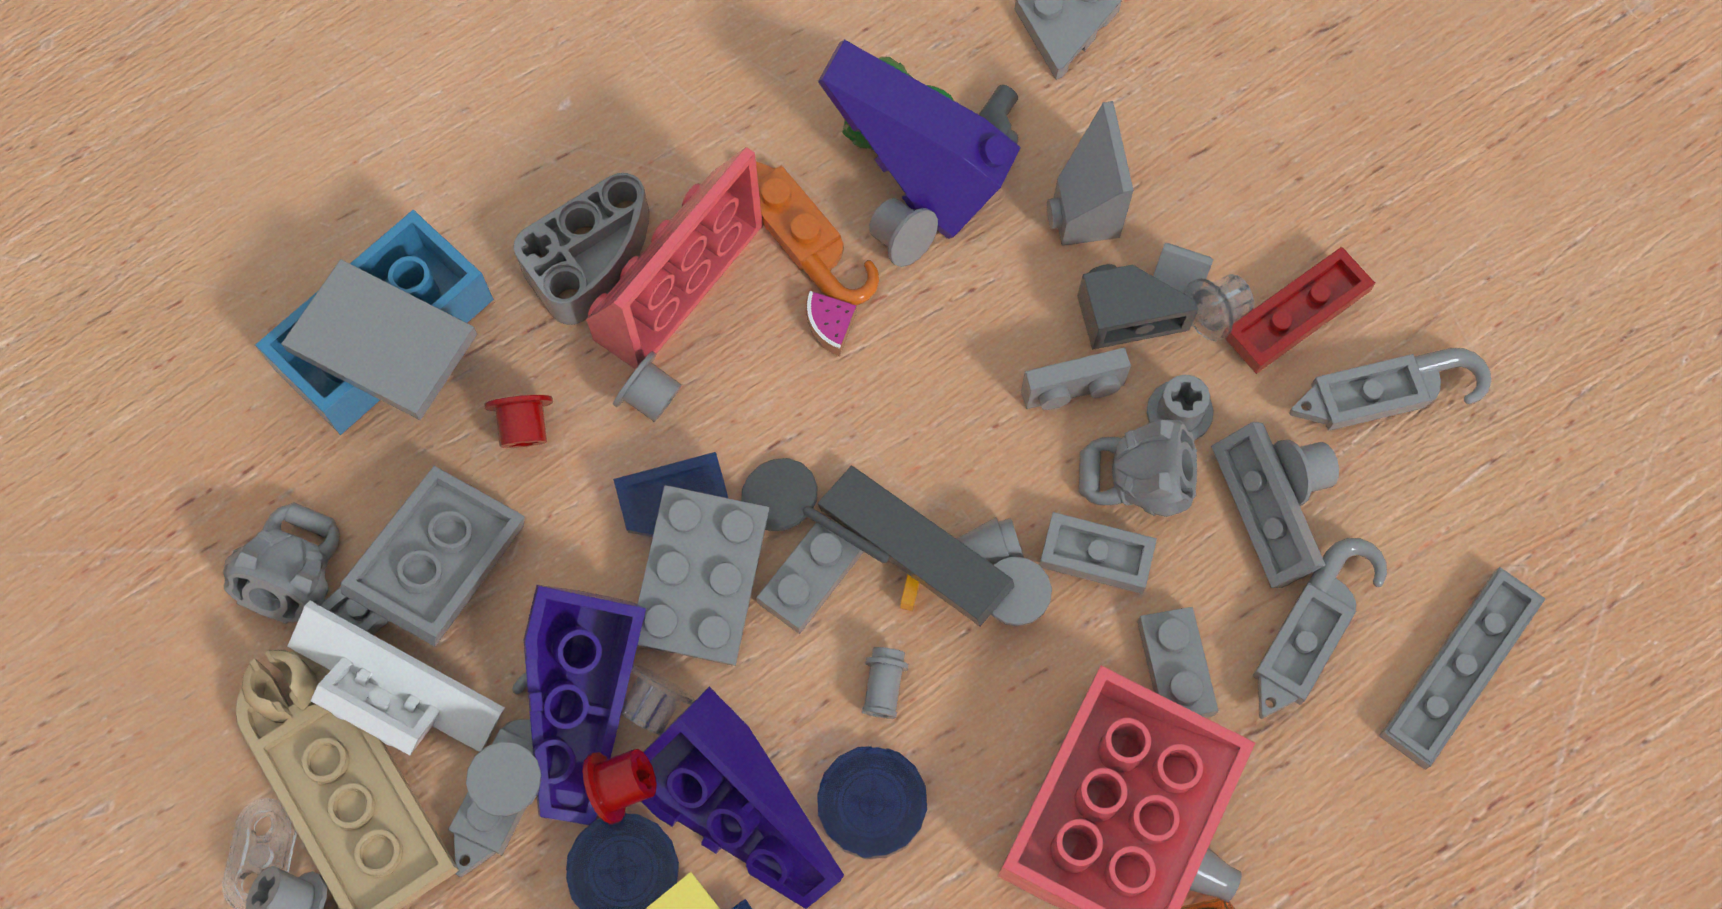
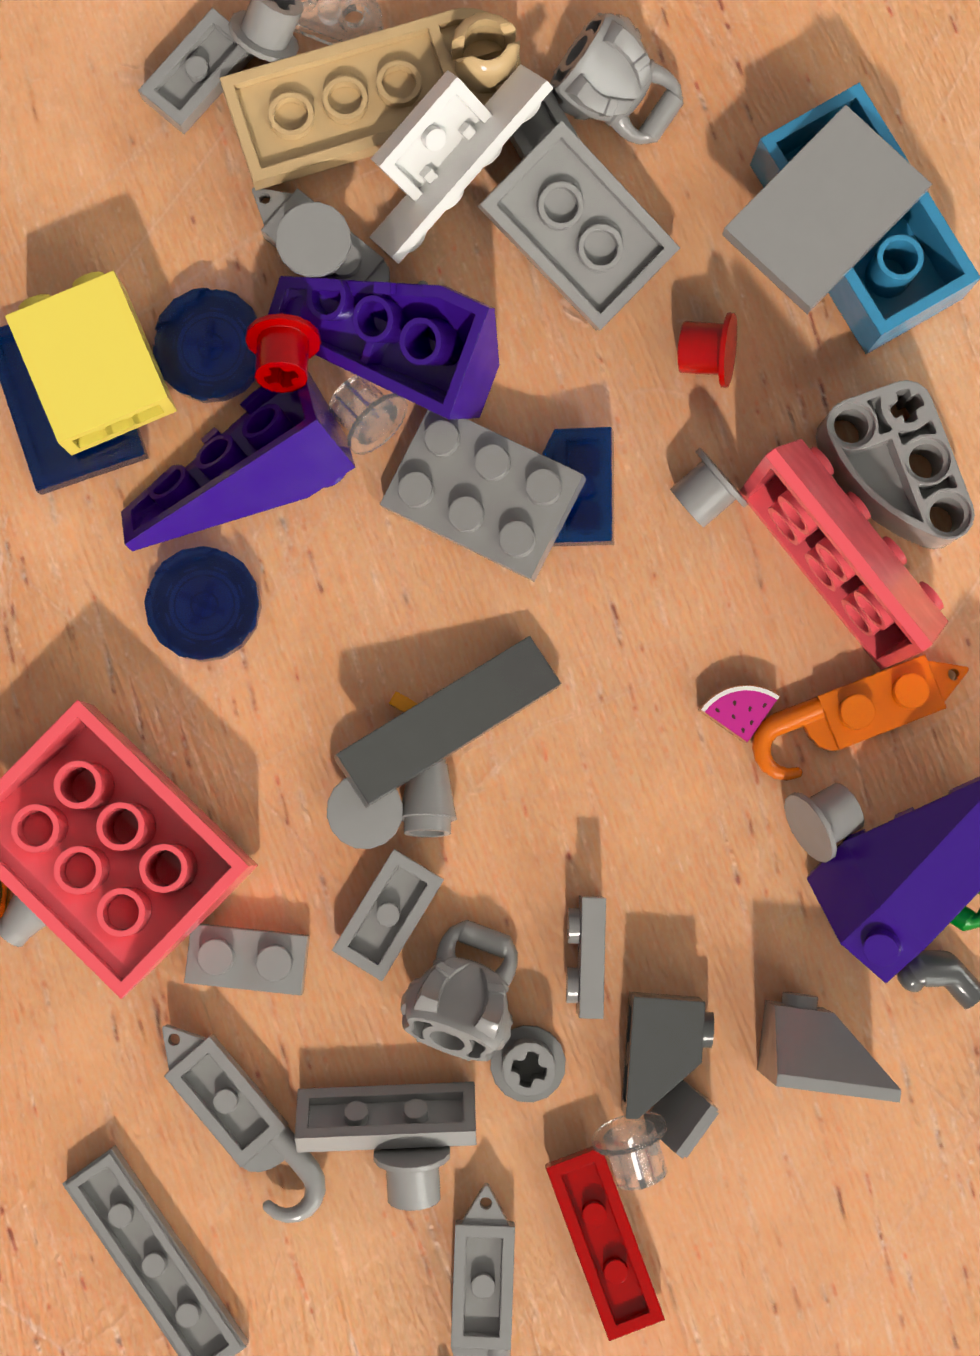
camera: 105 degrees right, 15 degrees up
(791, 495) = (550, 608): dark grey piece -> none
(808, 577) = (456, 608): light grey plate -> none
(884, 682) = (317, 649): light grey pin -> none

